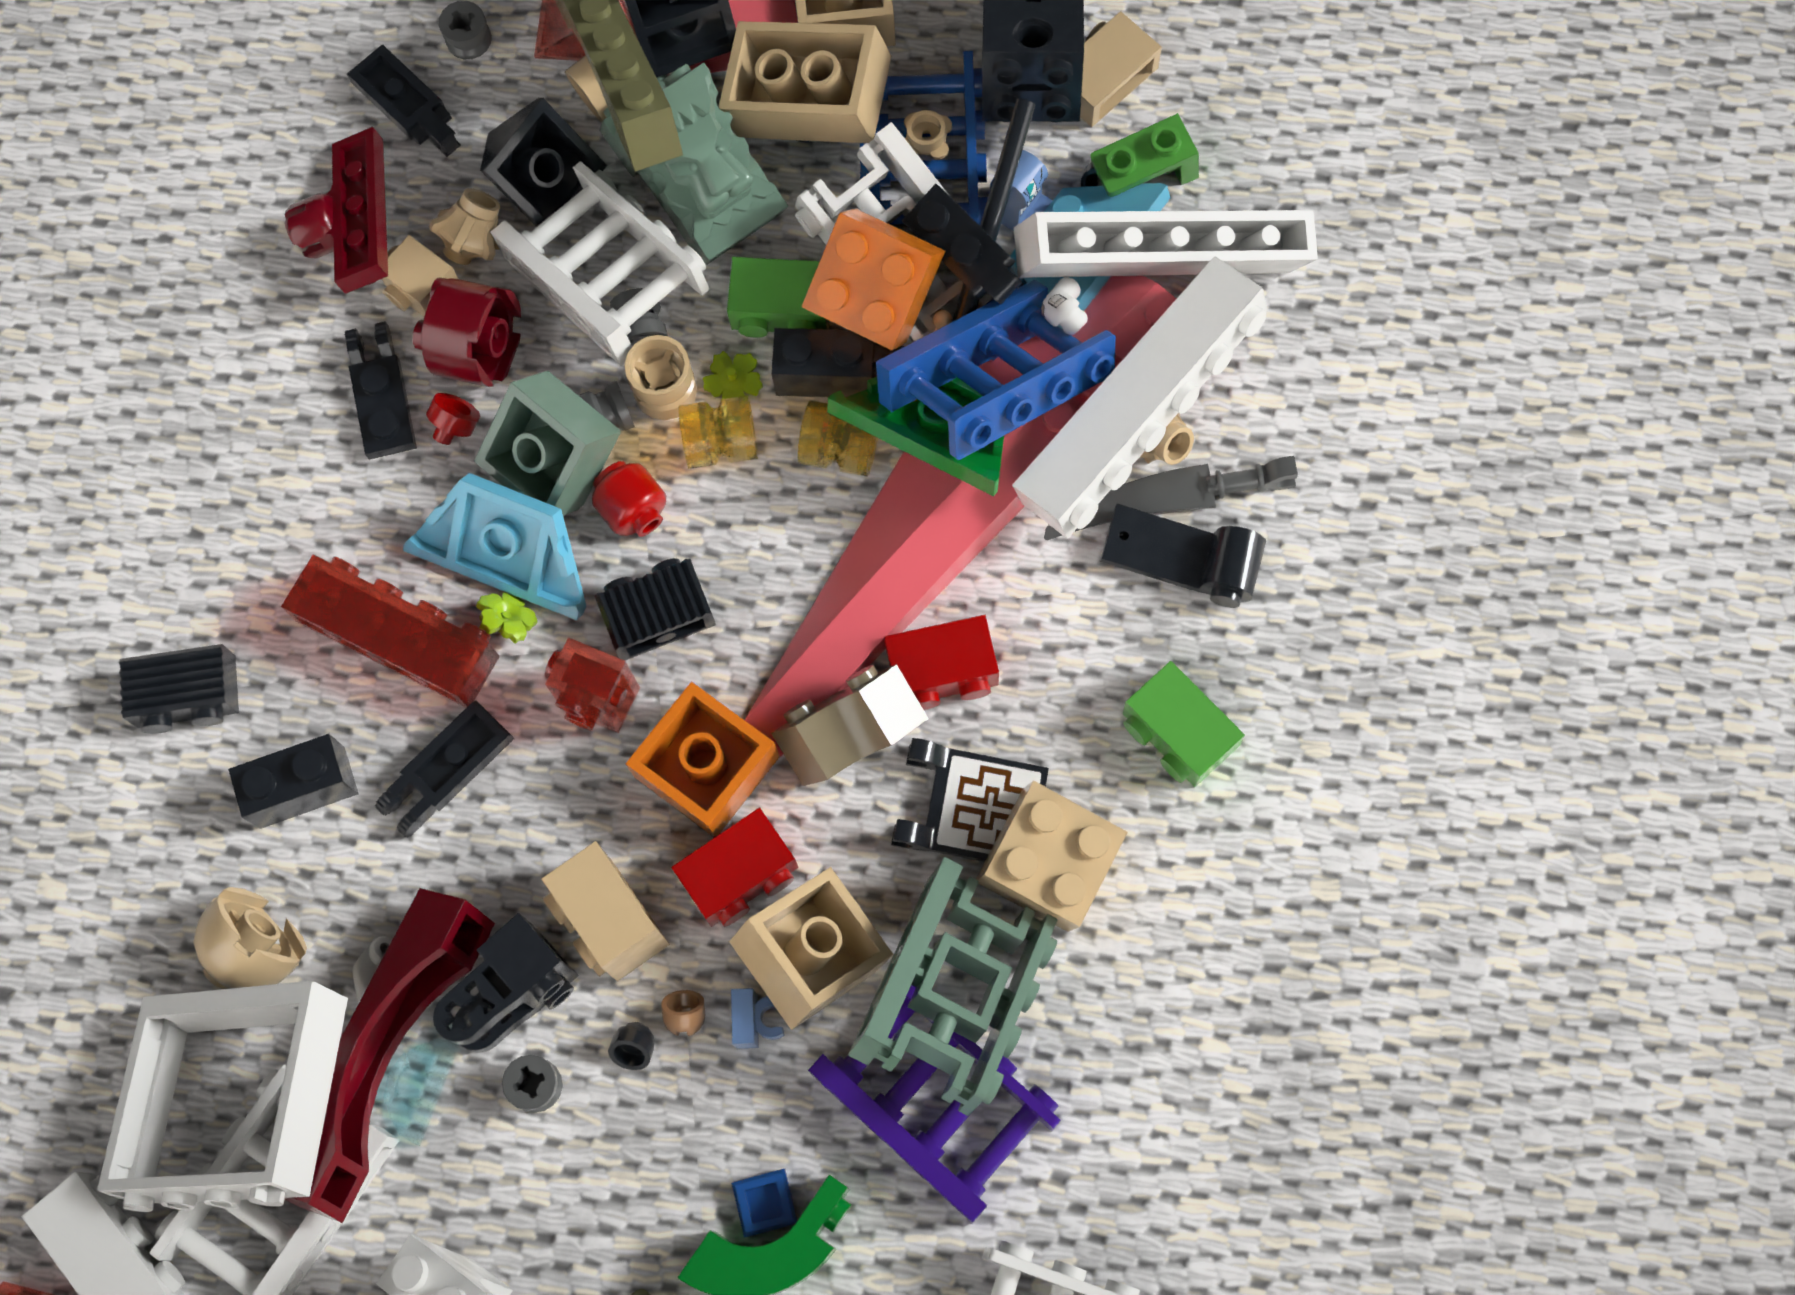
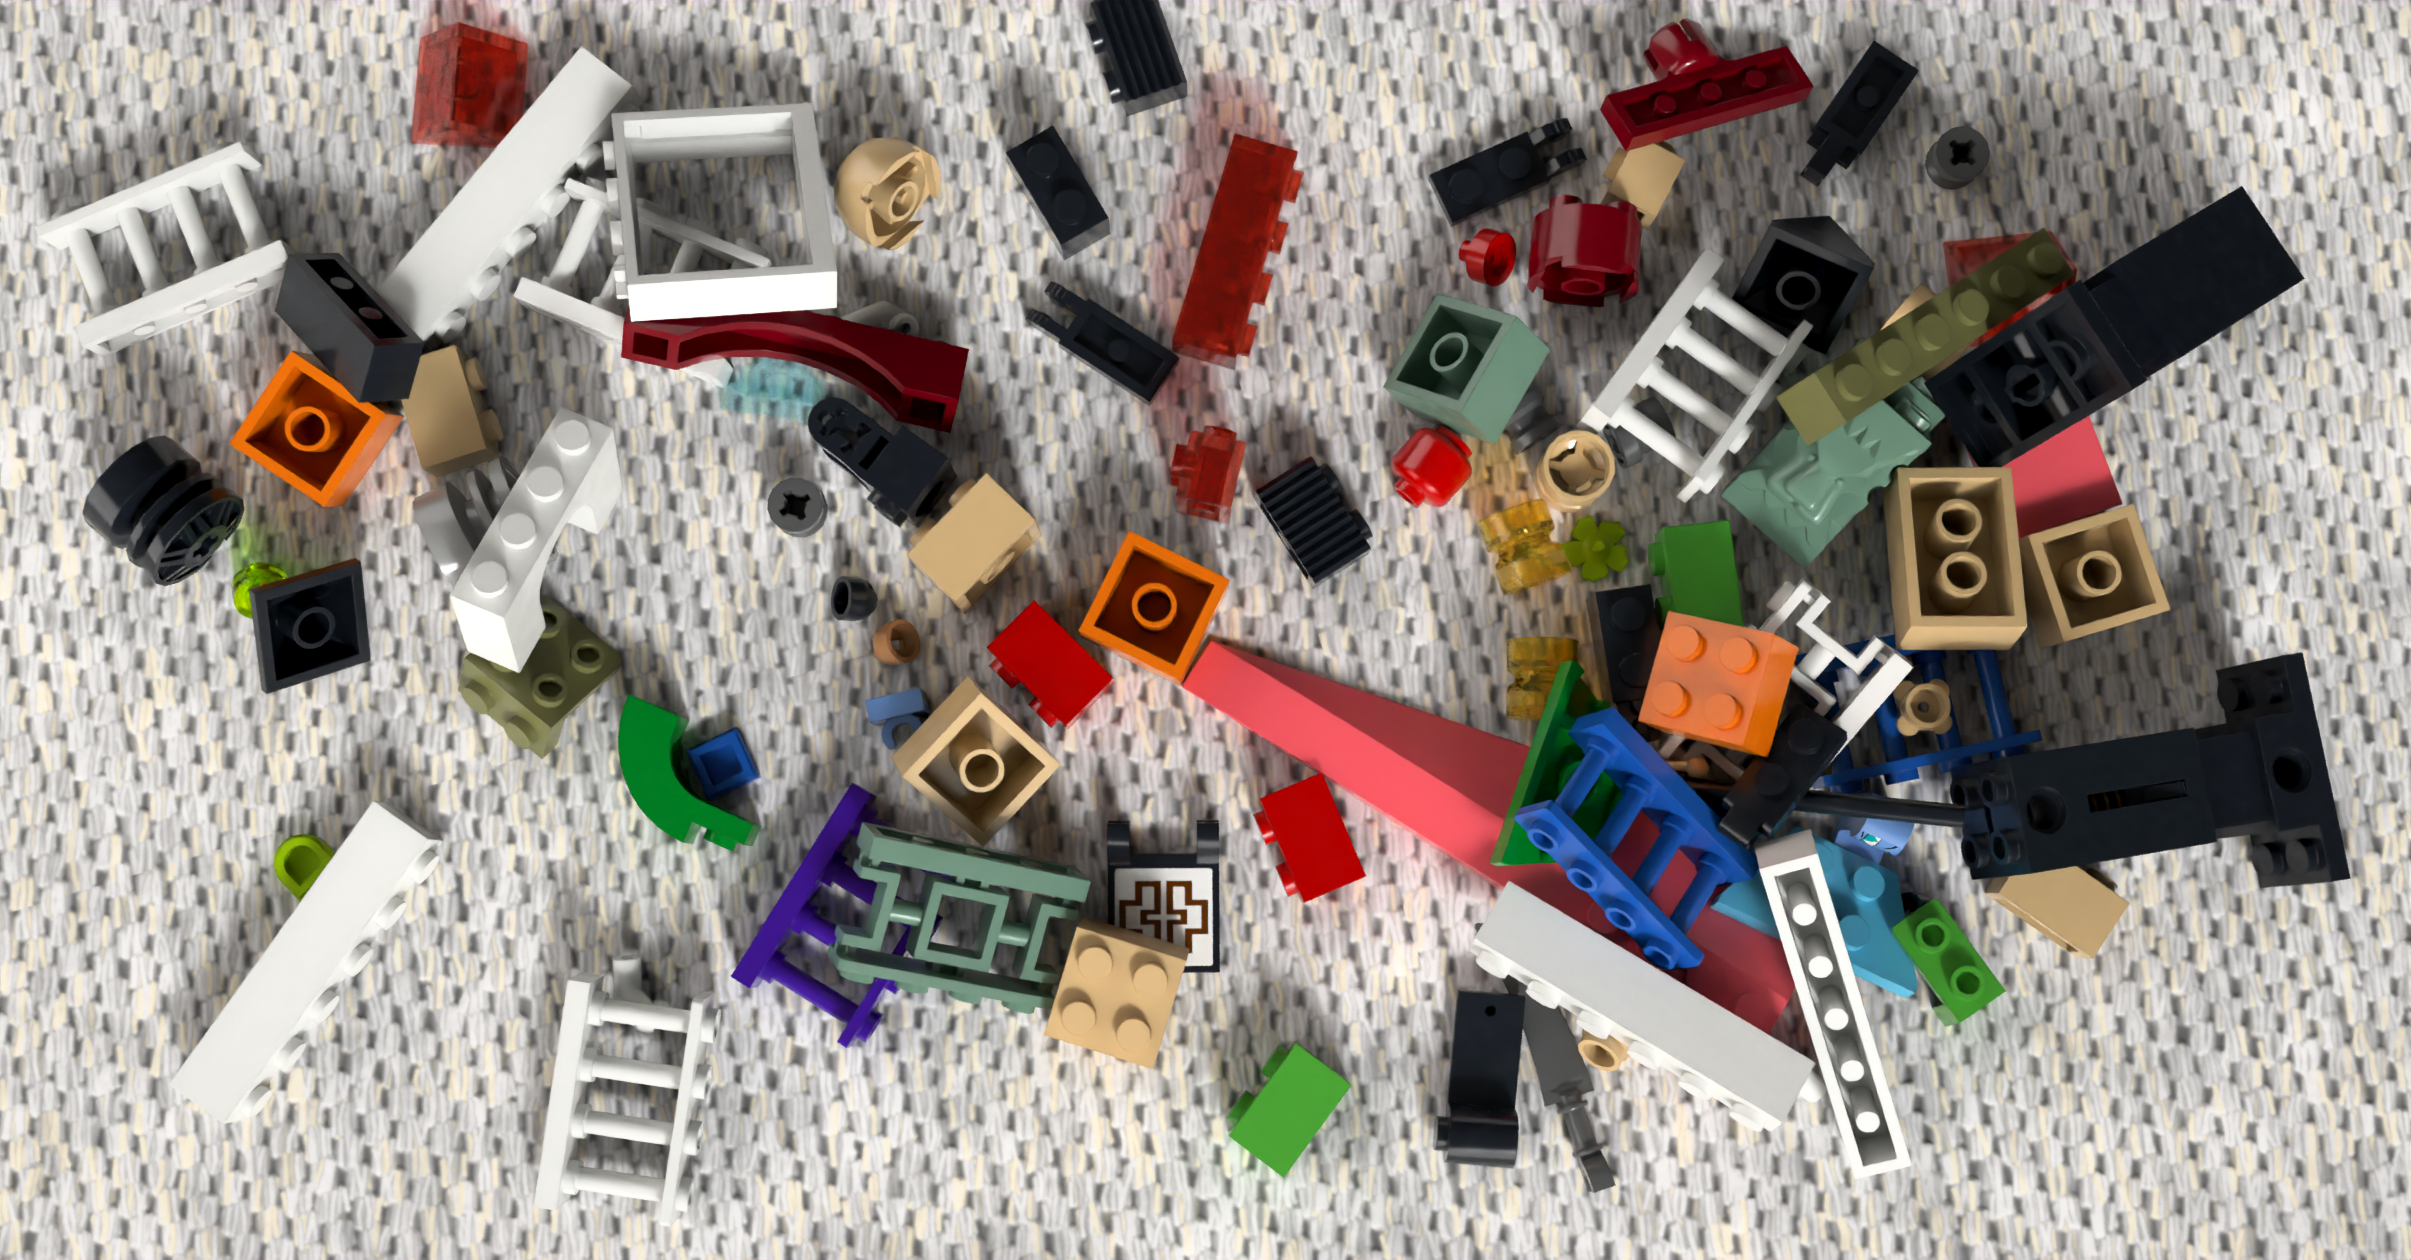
camera: 70 degrees right, 10 degrees up
(467, 227) = (1711, 221): tan rock -> none
(504, 544) = (1352, 346): medium azure wing -> none
(506, 616) = (1279, 366): lime plant -> none
(849, 725) = (1220, 754): dark tan brick -> none
(1062, 307) = (1727, 898): white arm -> none

